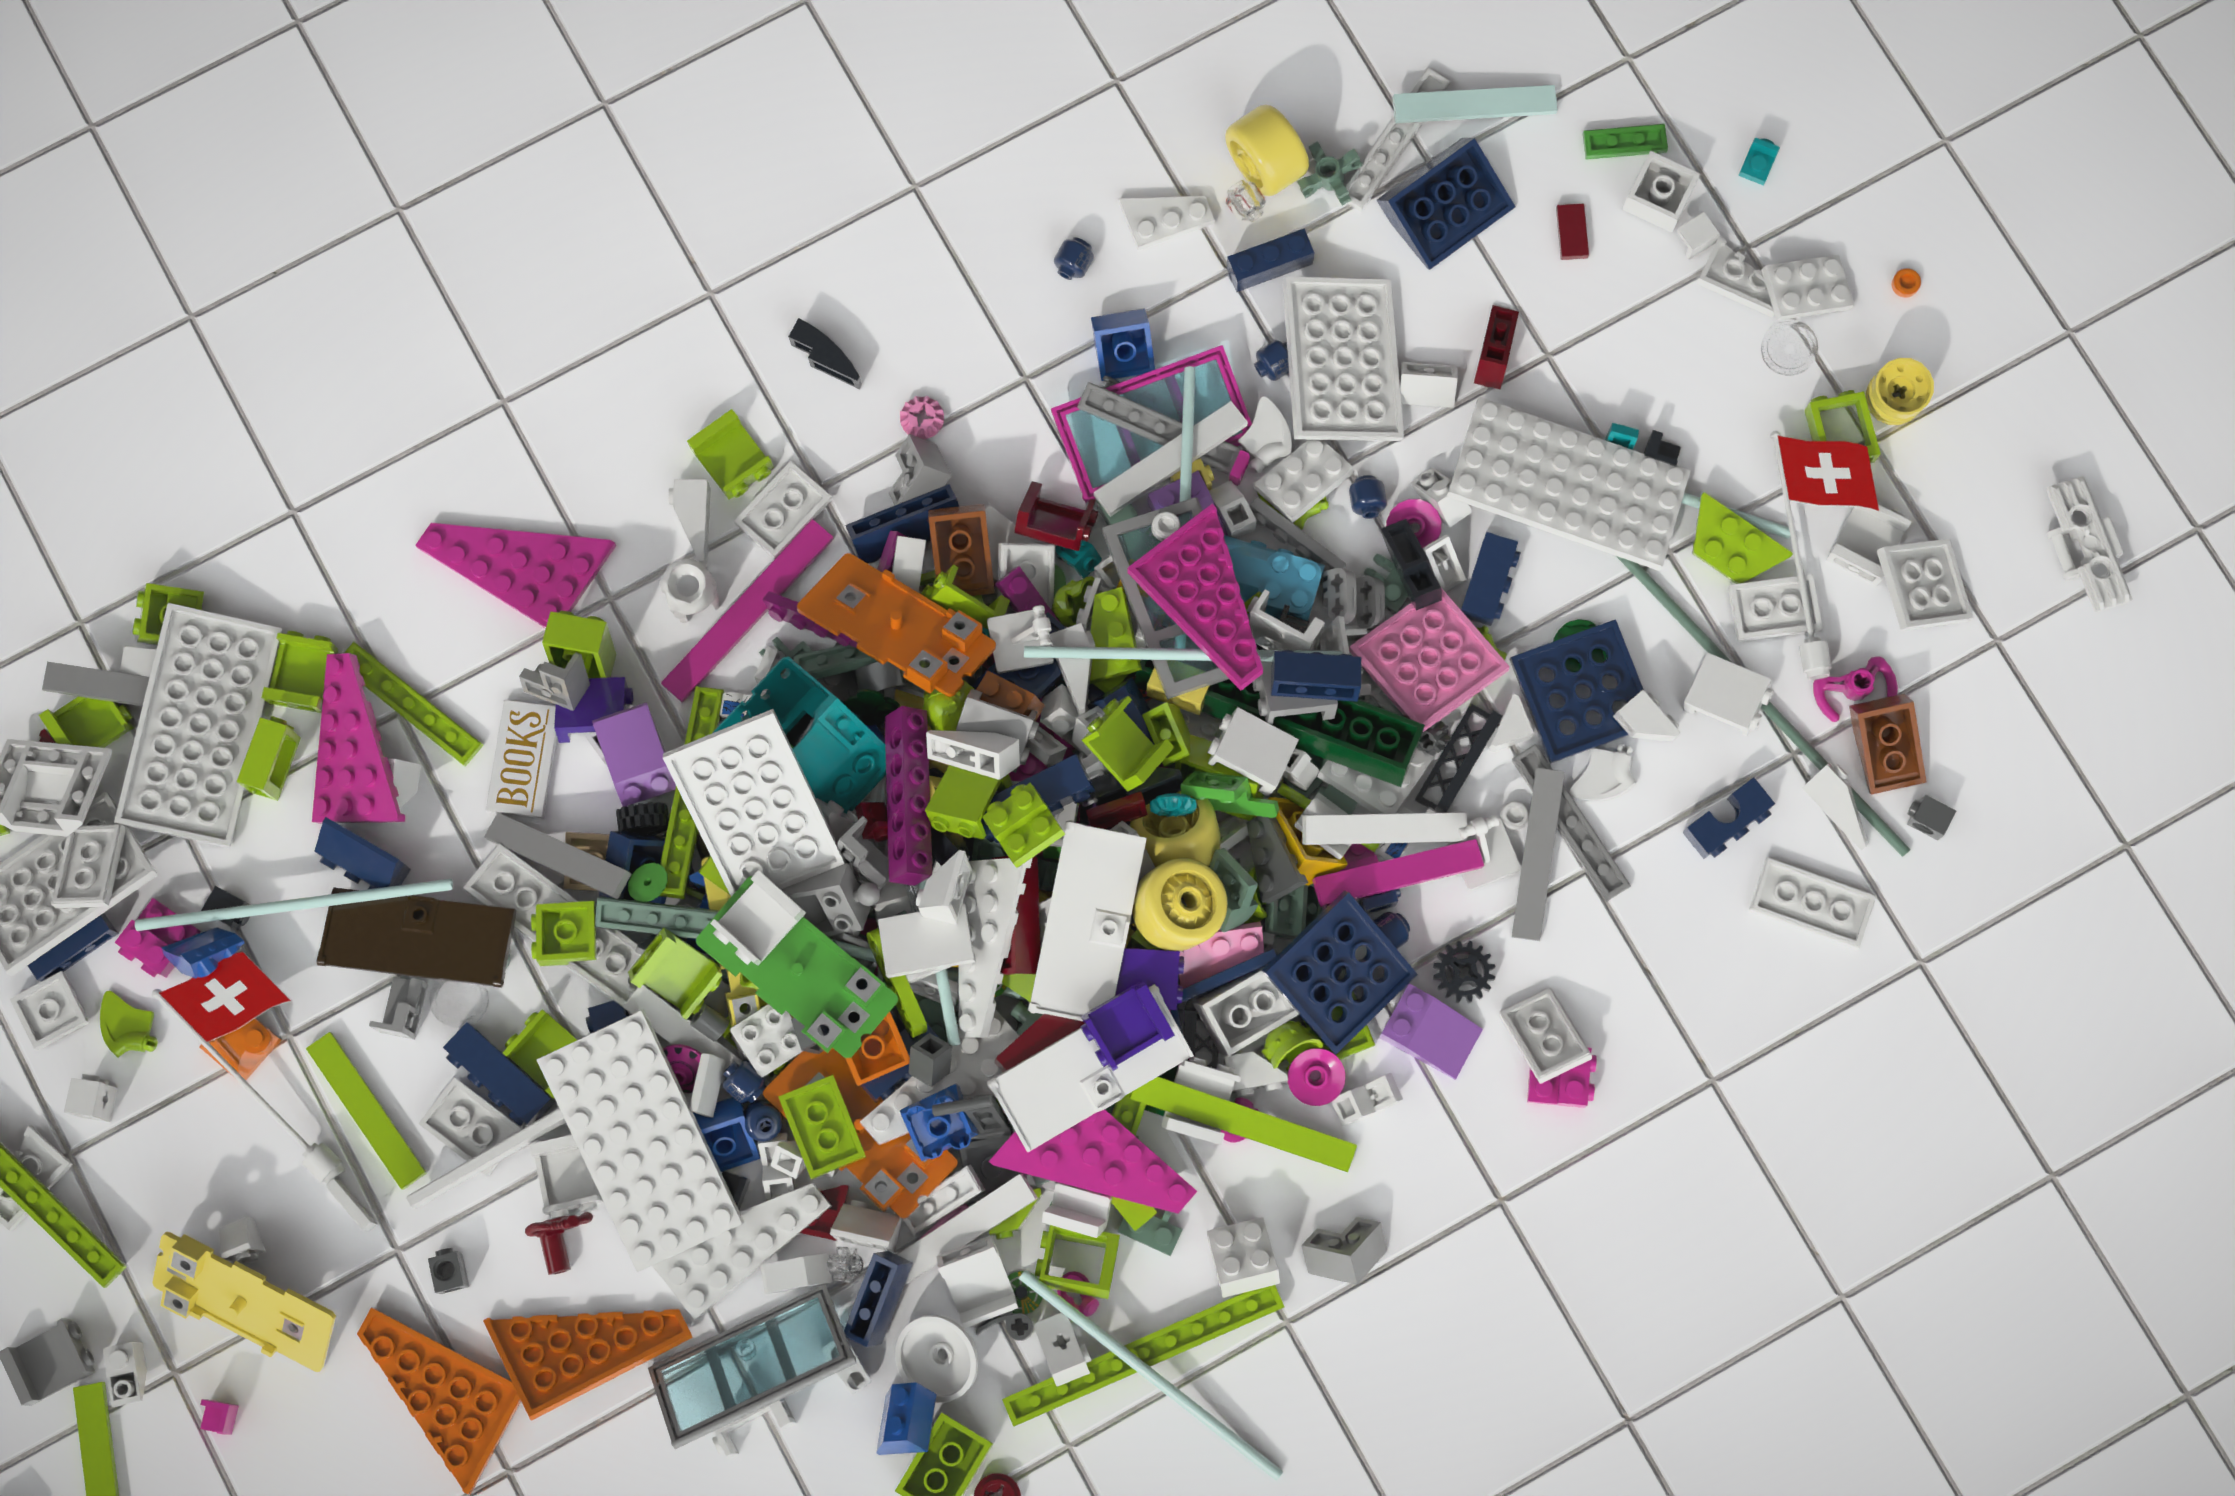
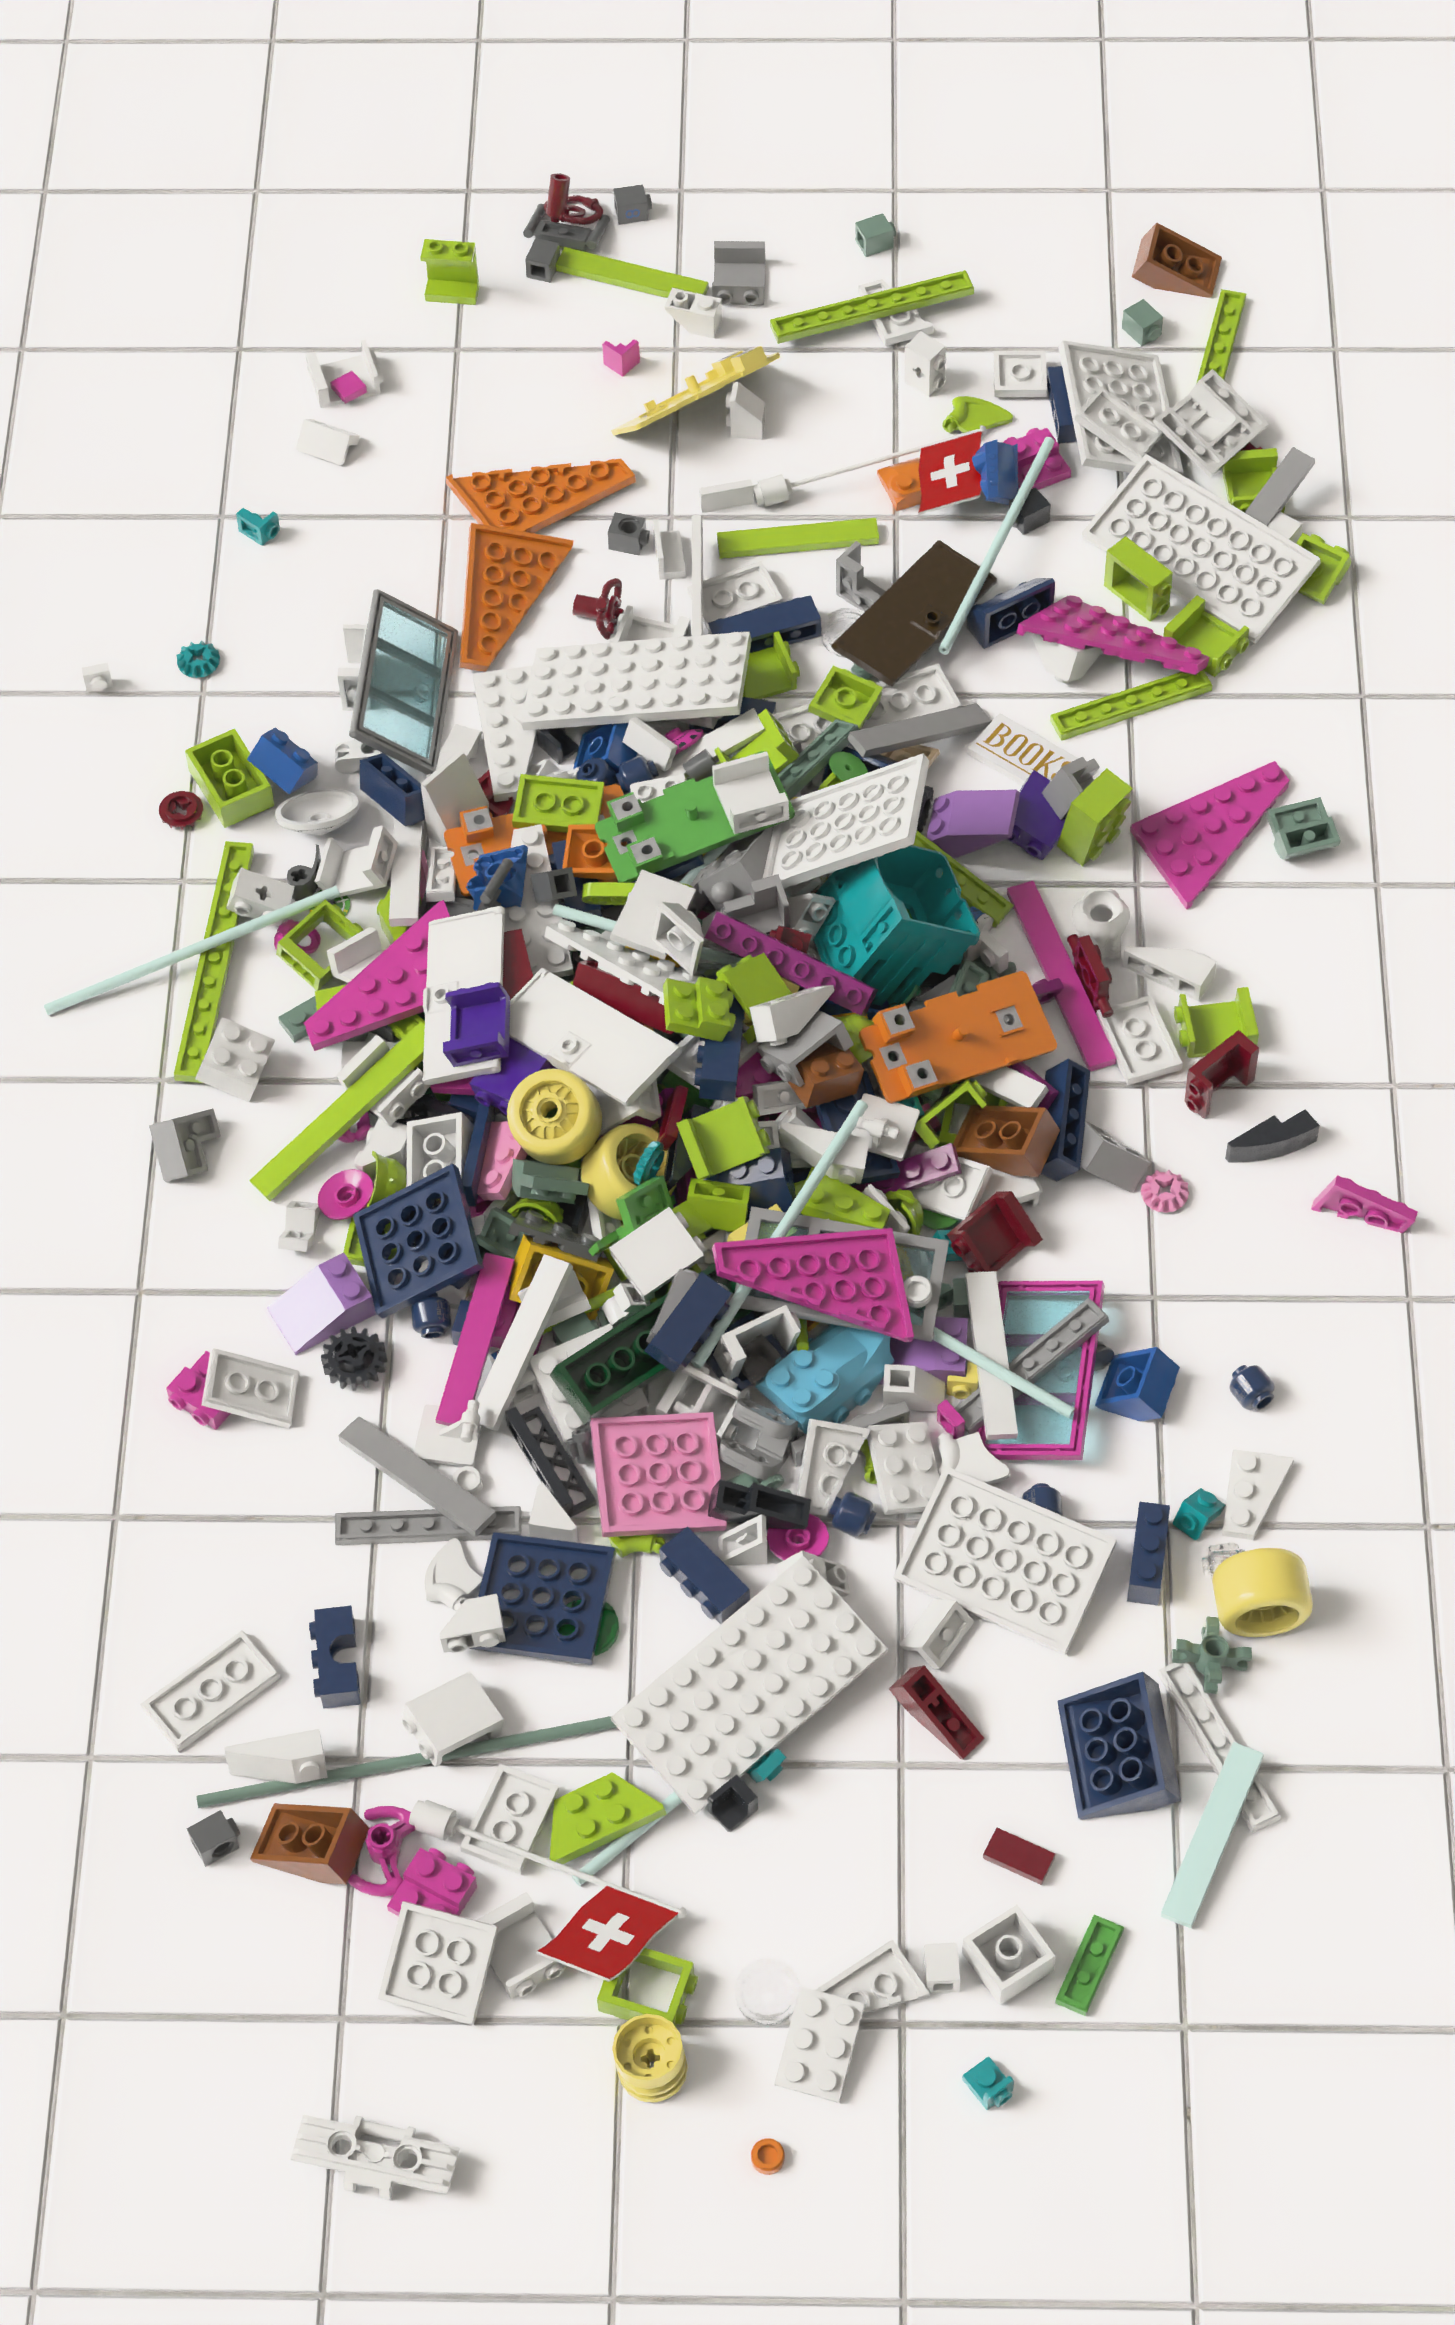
camera: 120 degrees right, 20 degrees down
(448, 1221) = (668, 553): none -> white panel
(486, 481) = (1302, 828): none -> sand green brick
(740, 577) = (1092, 972): none -> dark red plate
(788, 425) = (1233, 1057): none -> dark red panel
(852, 245) = (1355, 1200): none -> dark pink wing
(1209, 244) = (1197, 1512): none -> teal bracket
(1339, 536) = (826, 1461): none -> white wing
(1866, 629) = (435, 1884): none -> dark pink plate

